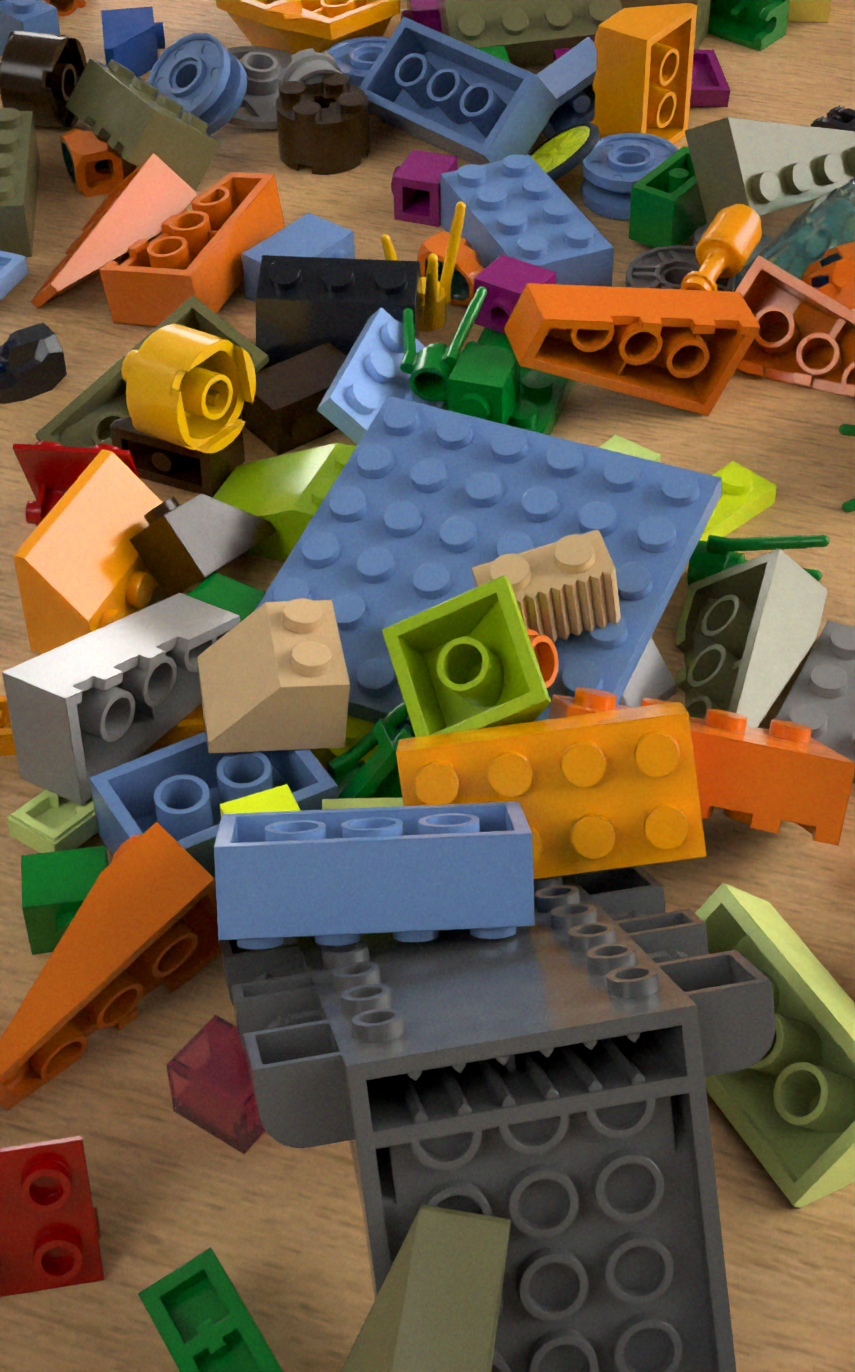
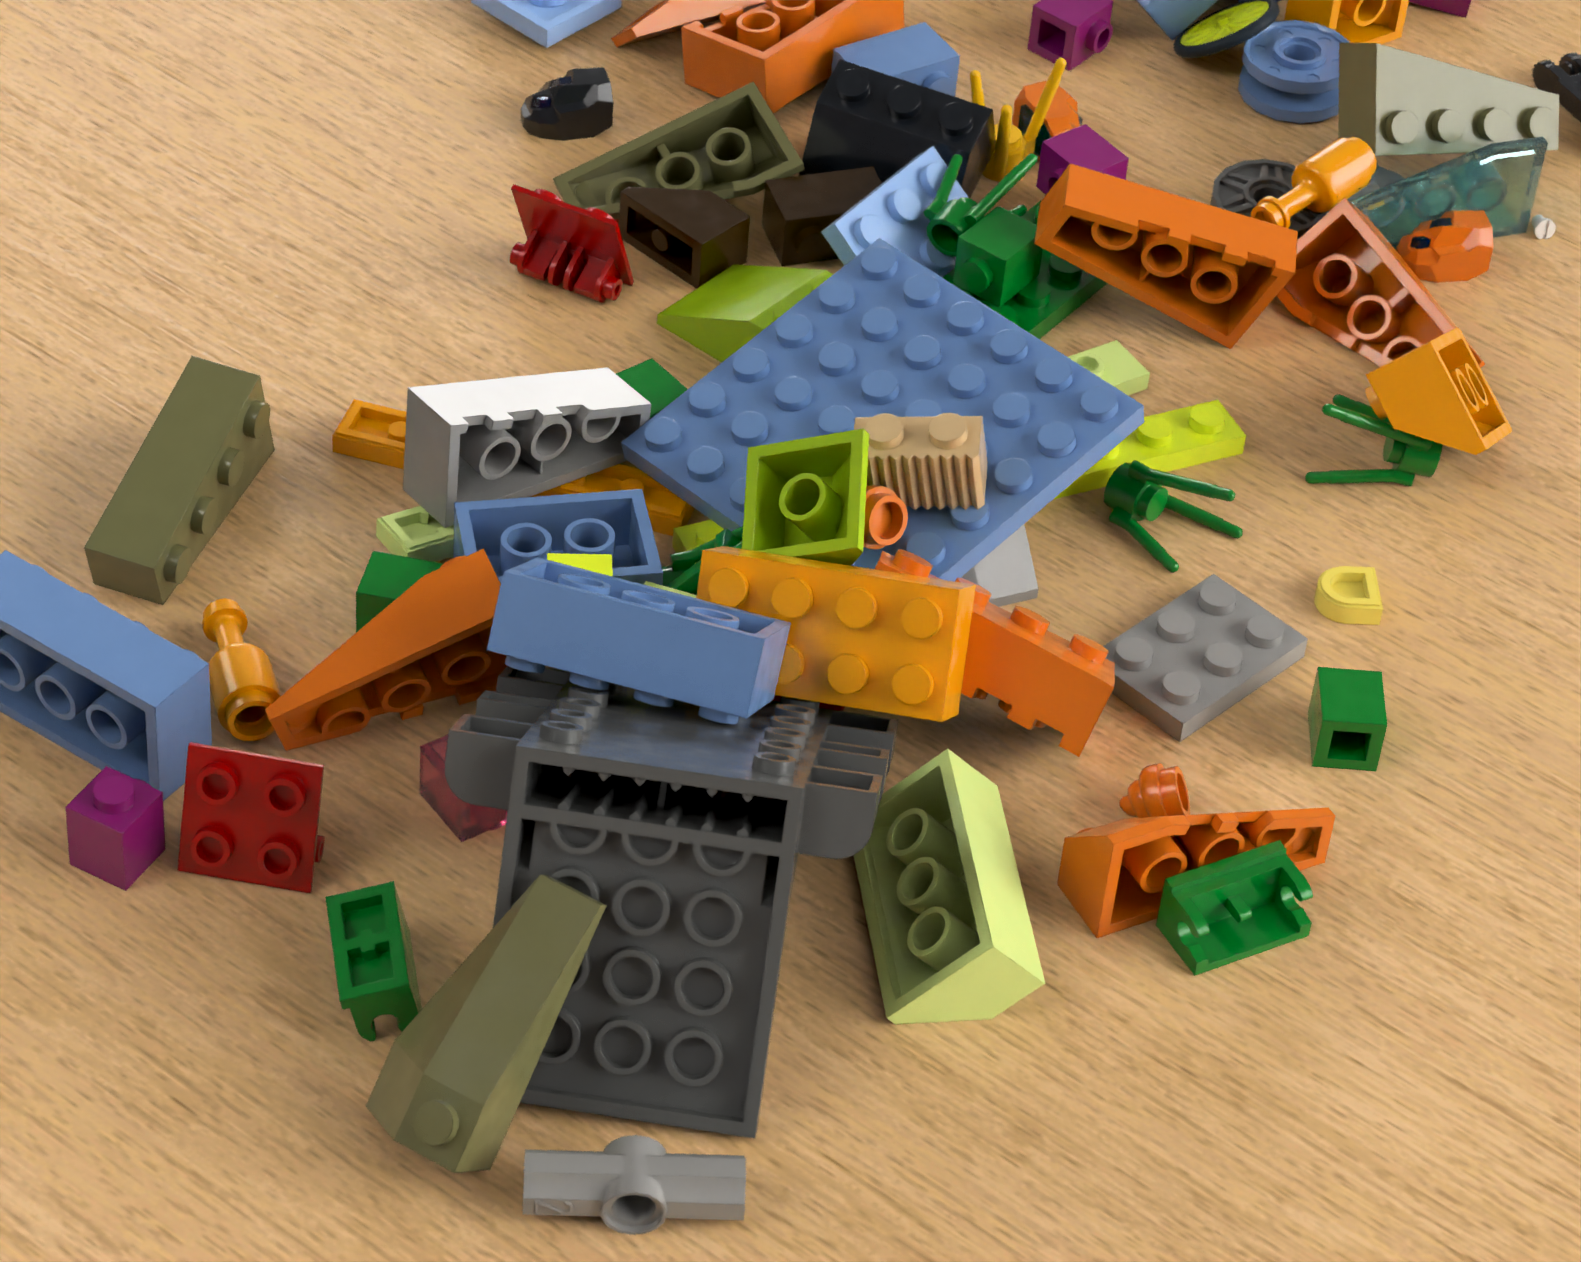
camera: 15 degrees right, 0 degrees up
(80, 560) = (552, 308): light orange slope -> none
(188, 388) = (700, 176): yellow brick -> none
(195, 540) = (651, 323): dark brown slope -> none
(276, 681) = (647, 467): tan slope -> none
(526, 216) = (1146, 99): medium blue brick -> none
(666, 203) = (1302, 114): green brick -> none
(746, 635) = (1124, 561): olive wedge -> none

